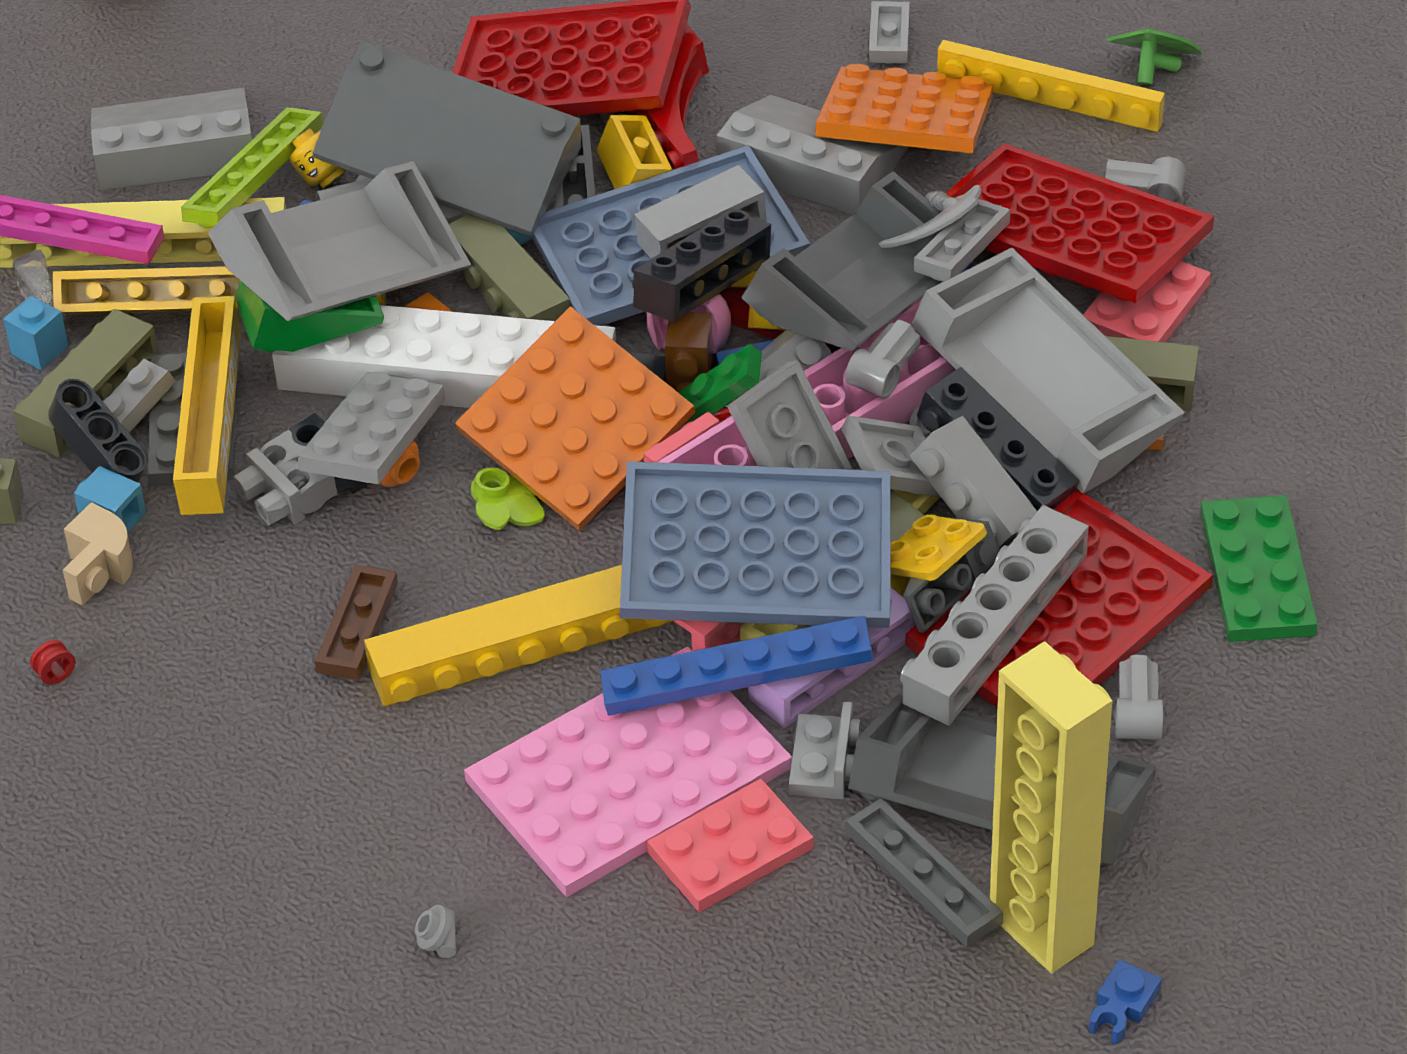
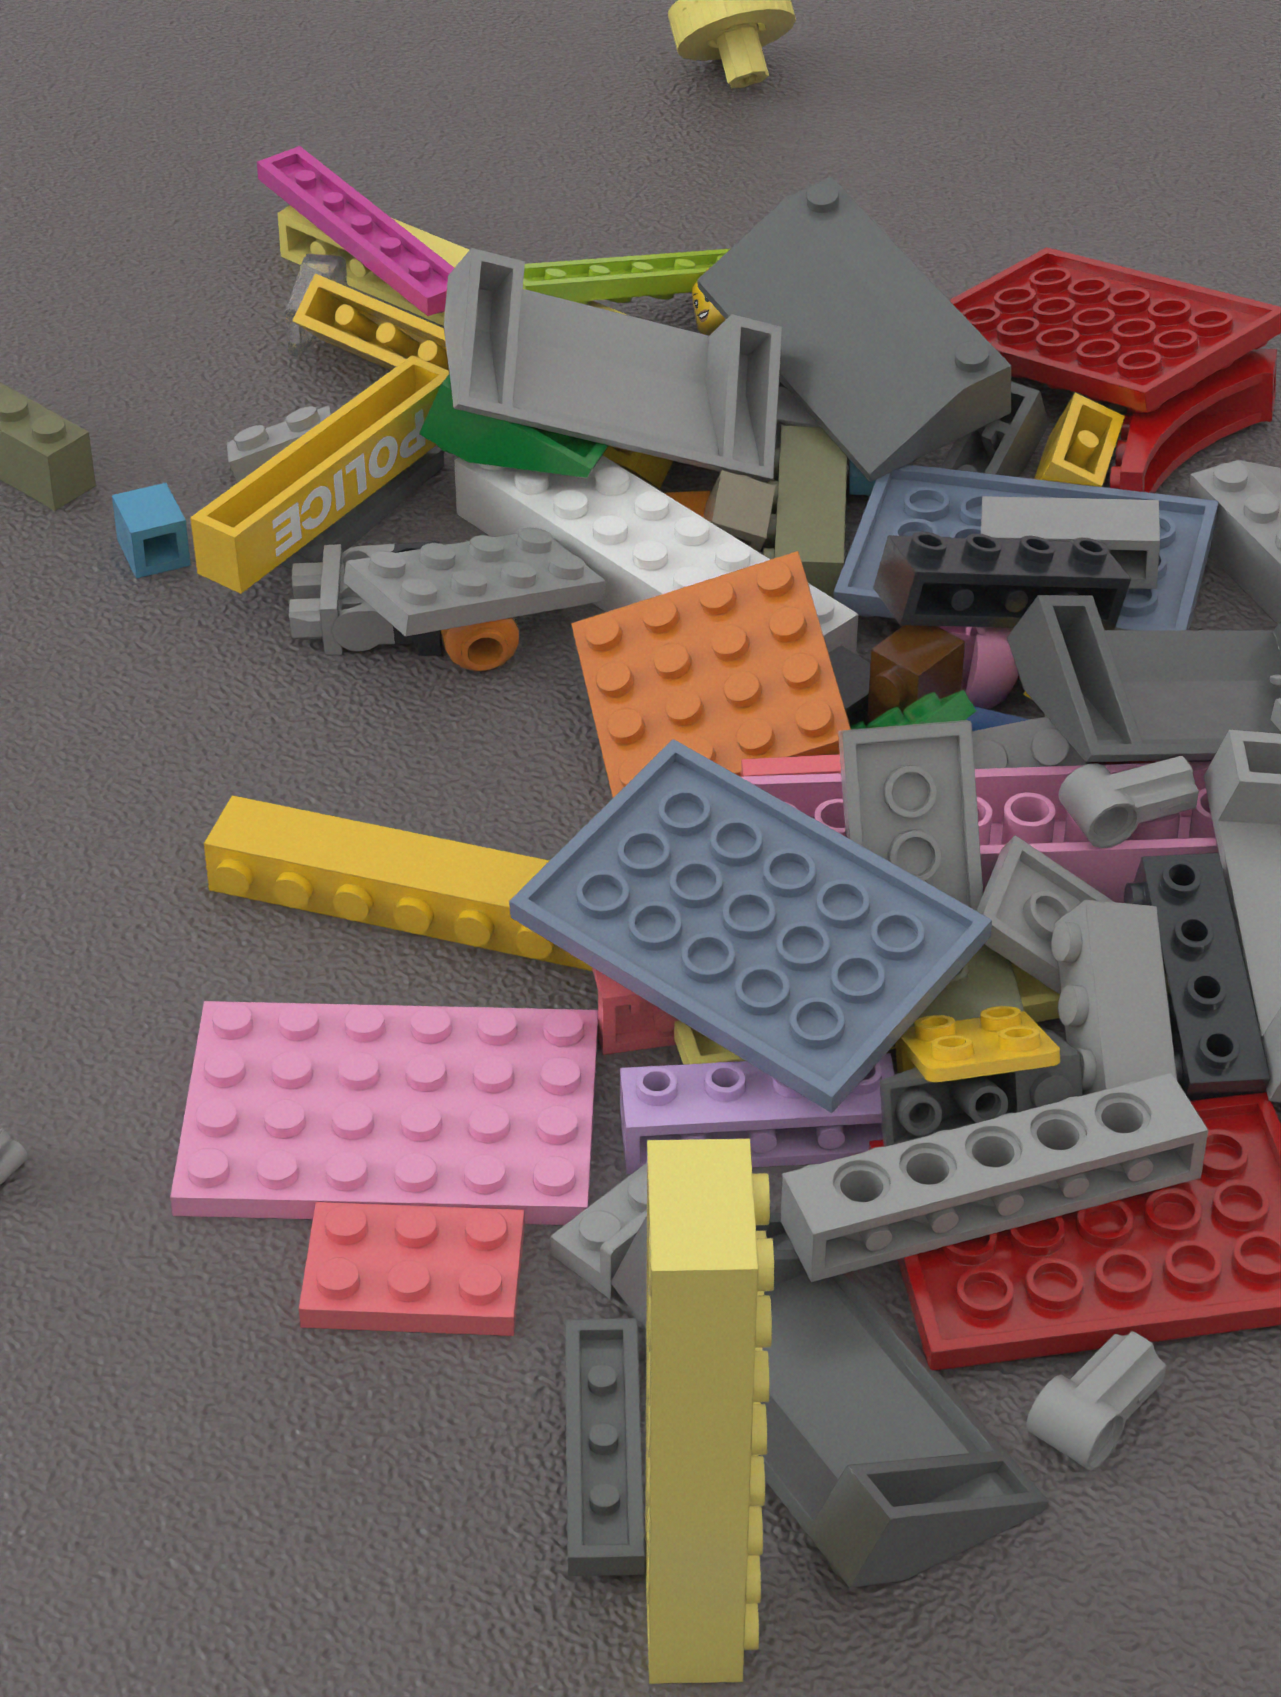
camera: 35 degrees right, 5 degrees down
(36, 332) = (262, 335): dark azure brick -> none
(95, 418) = (197, 431): black beam -> none
(99, 553) = (88, 576): tan brick -> none
(100, 361) = (200, 415): olive brick -> none
(168, 138) = (581, 216): light grey slope -> none
(356, 619) = (270, 775): reddish brown plate -> none
(472, 294) = (741, 507): none -> dark tan brick
(503, 500) = (564, 740): lime plate -> none
(736, 665) = (607, 1053): blue plate -> none

